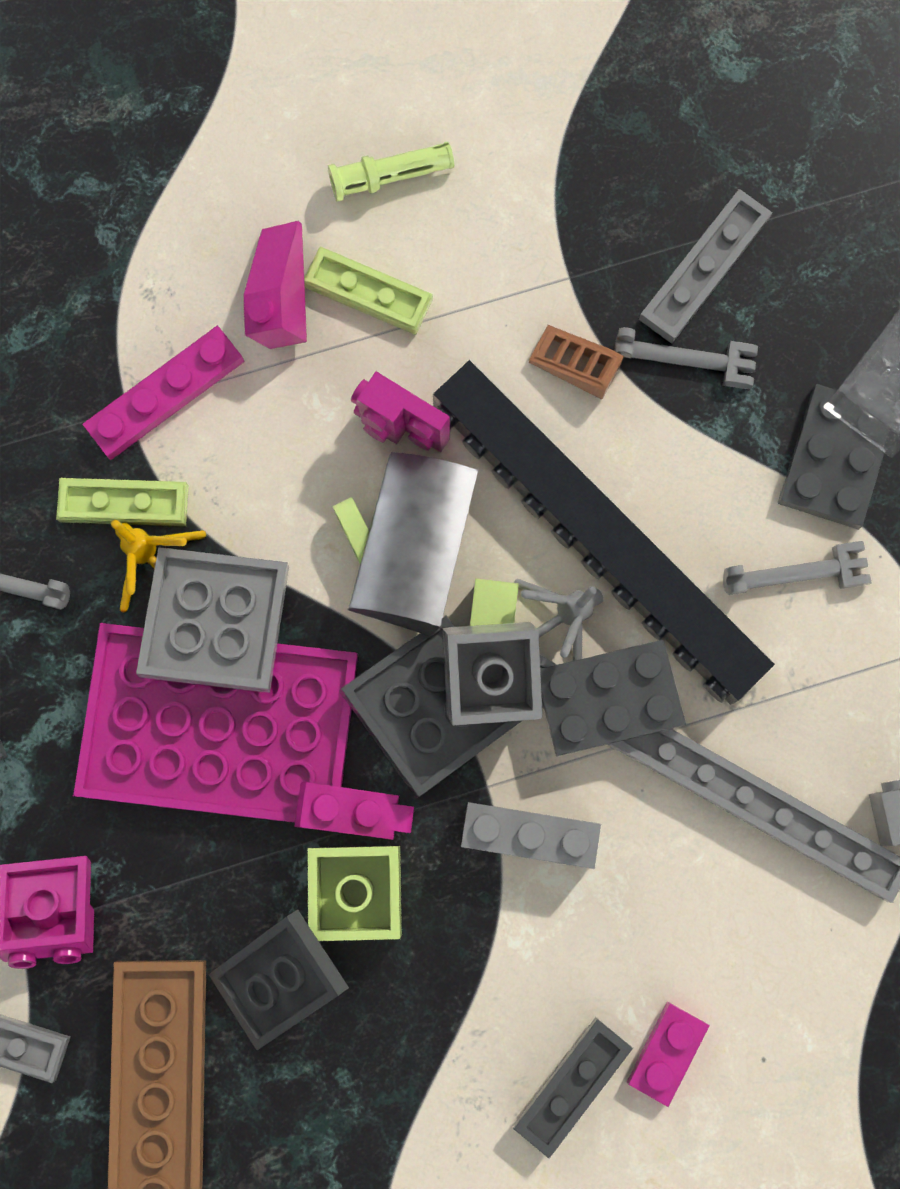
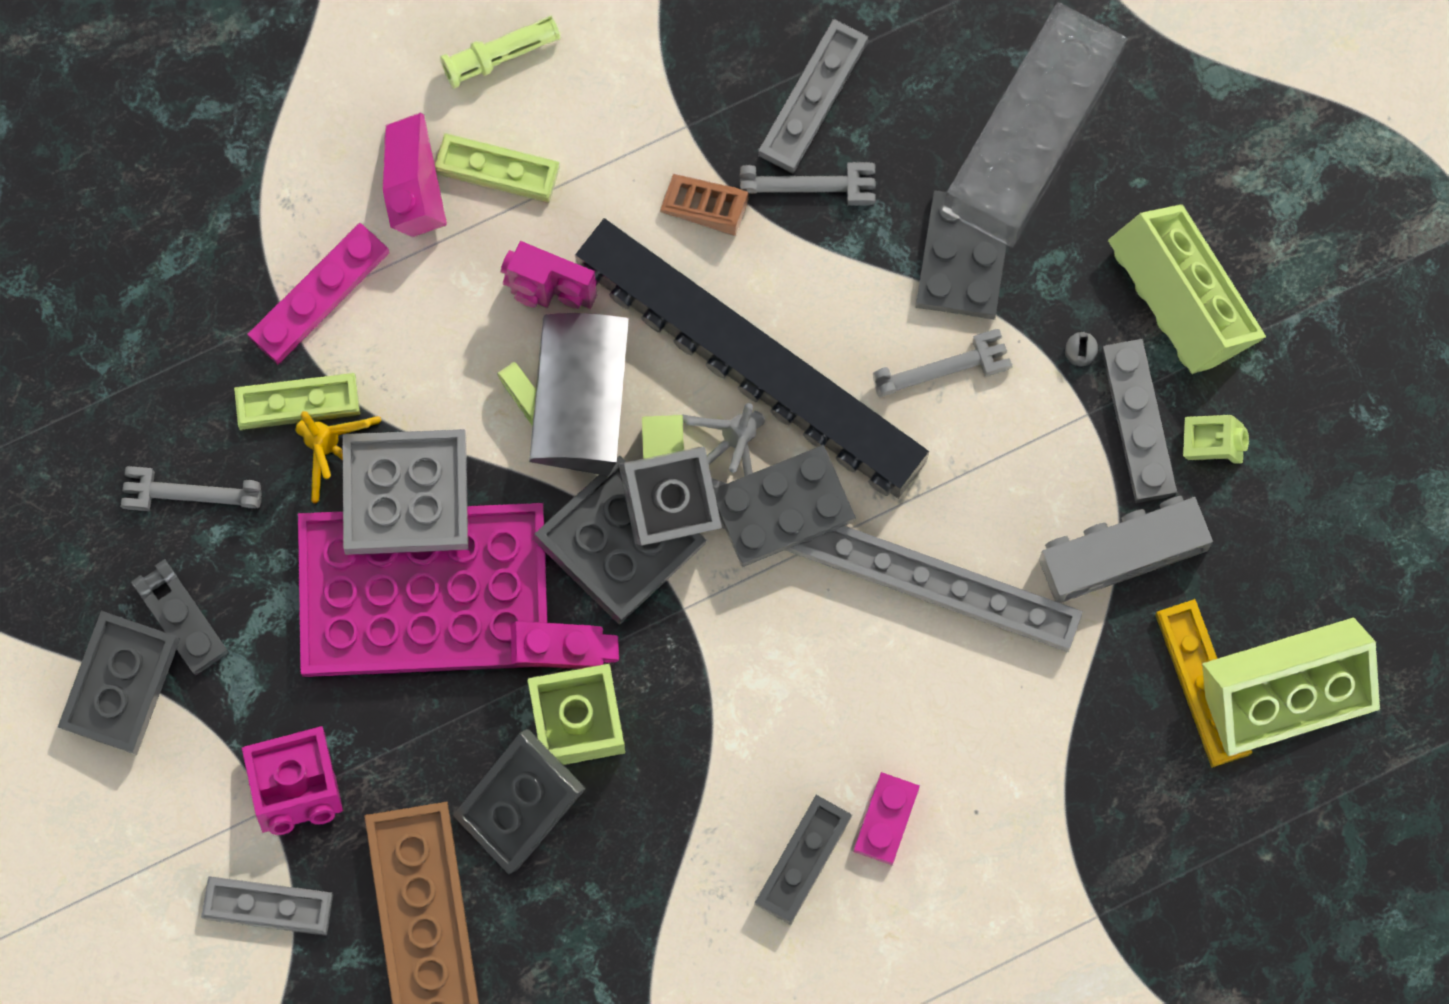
camera: 10 degrees left, 5 degrees down
(531, 835) = (728, 641): light grey brick -> none

